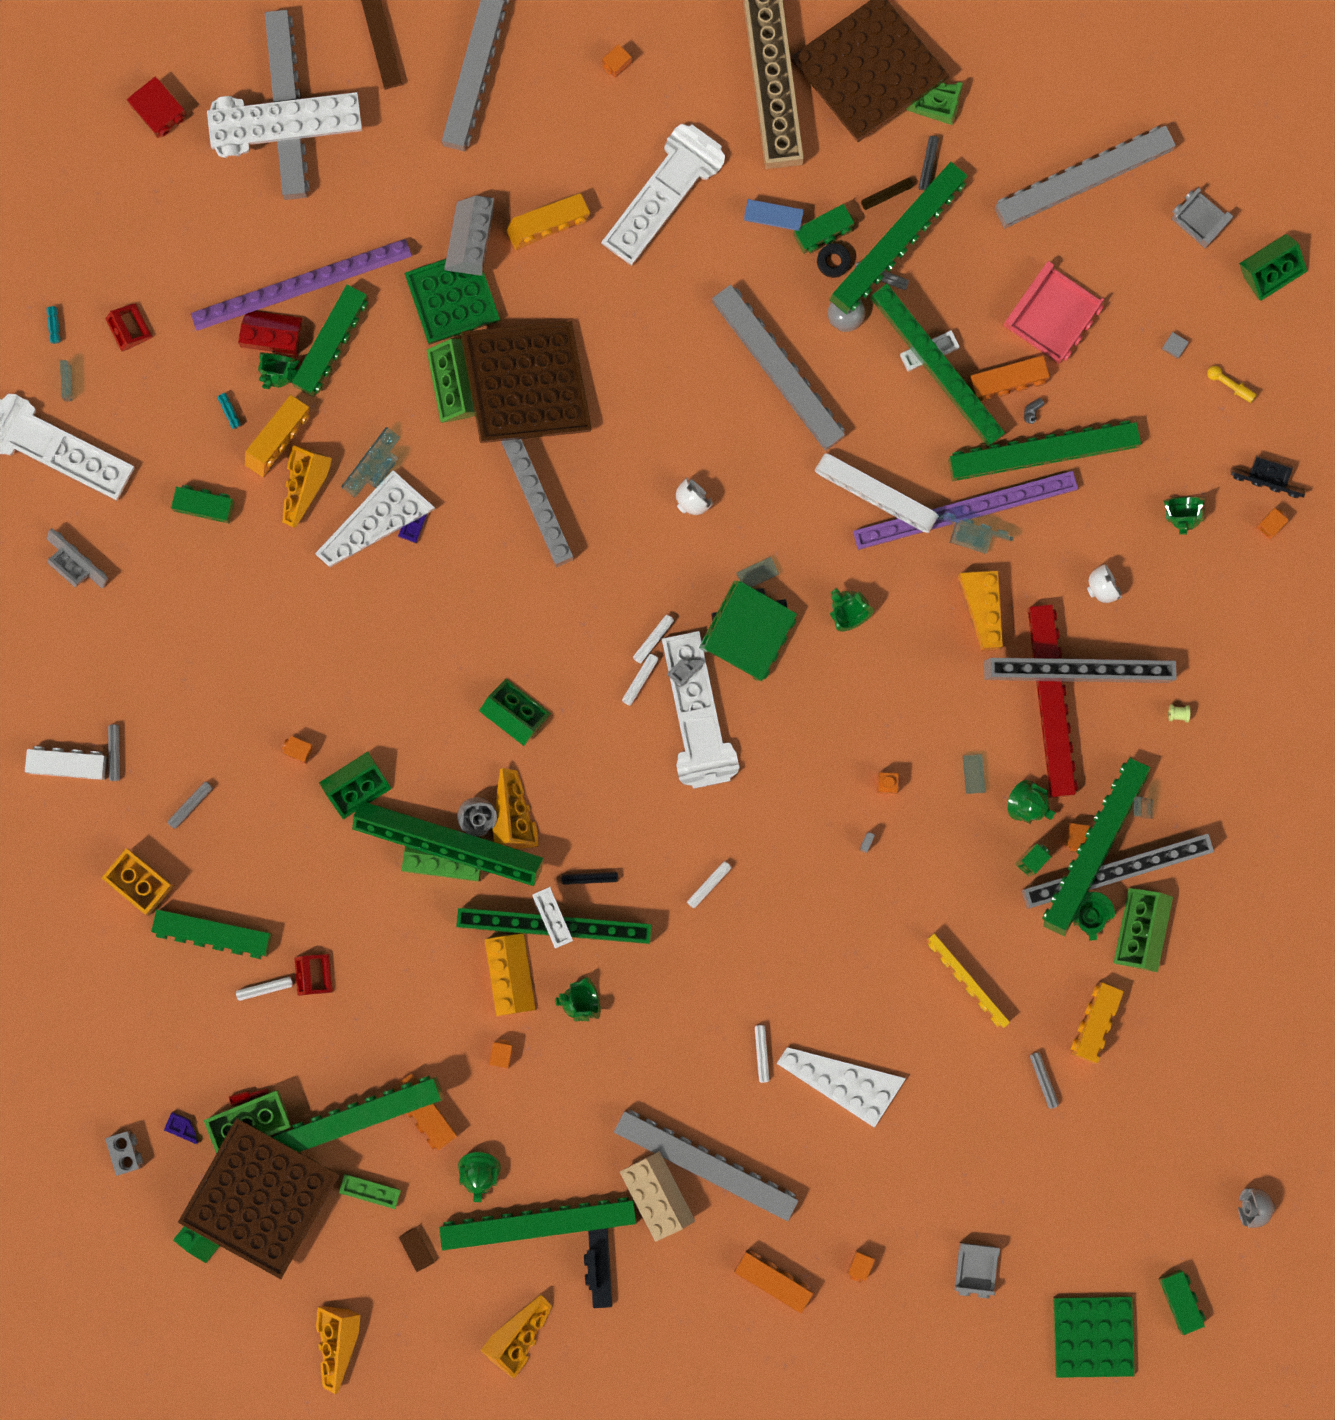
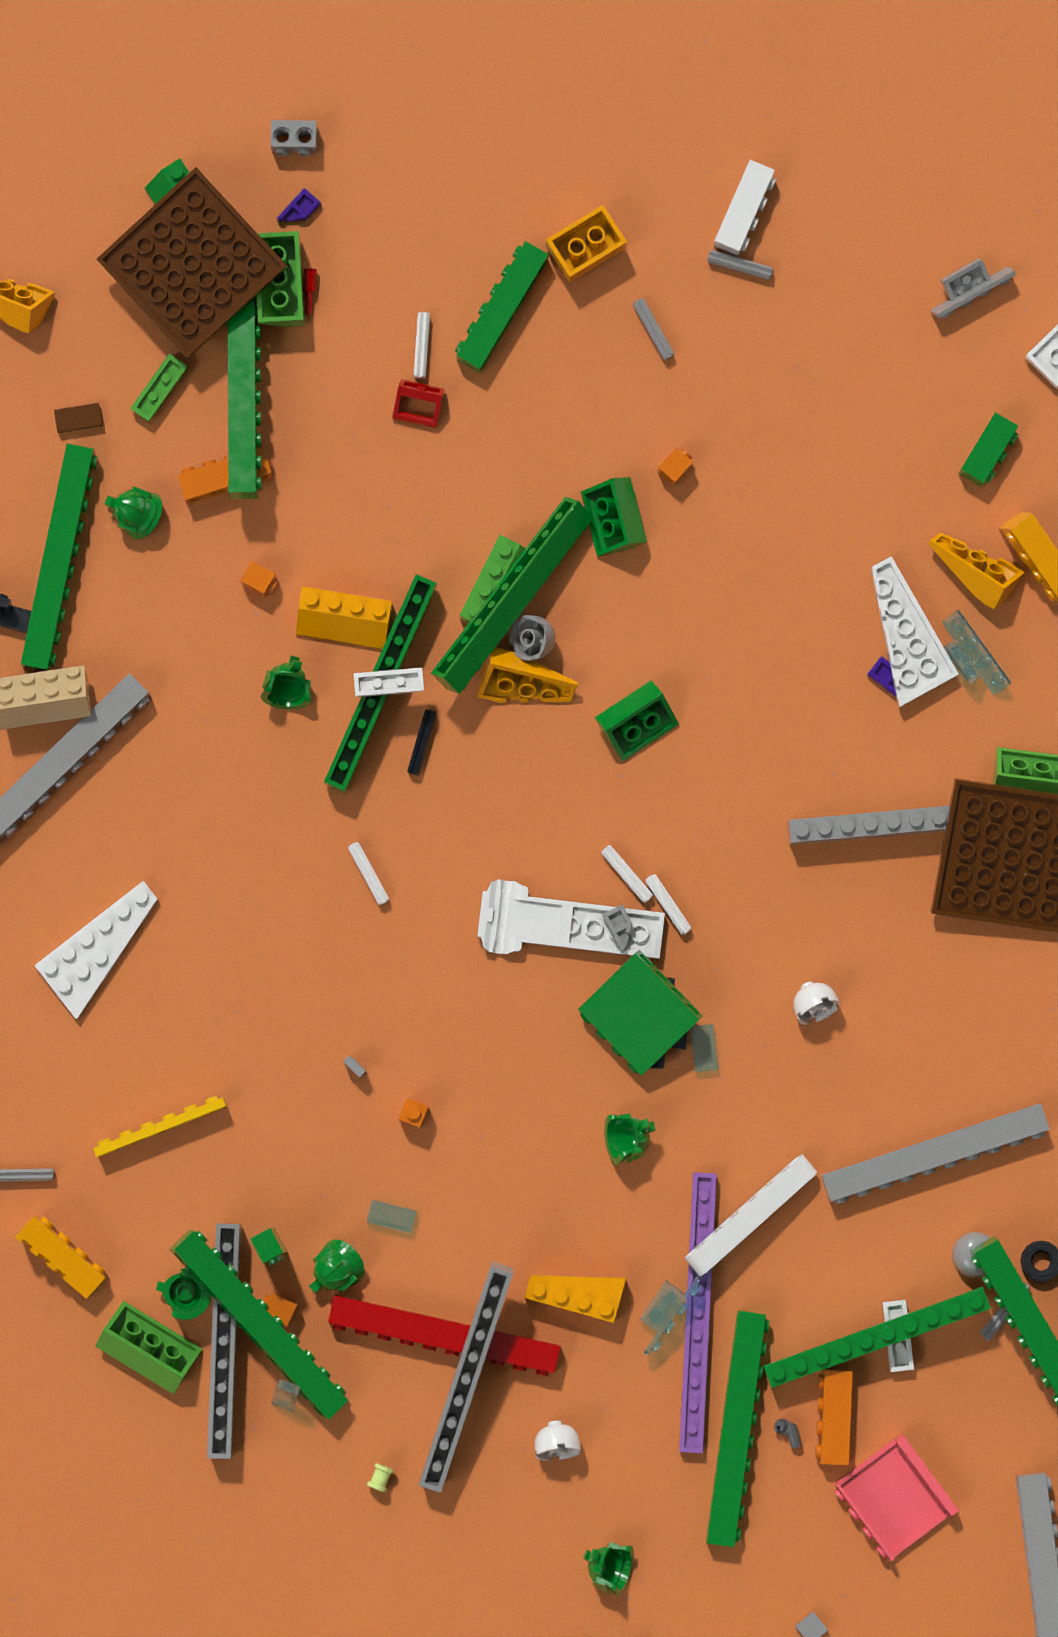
camera: 110 degrees right, 0 degrees up
(762, 1058) = (159, 868): white axle -> none

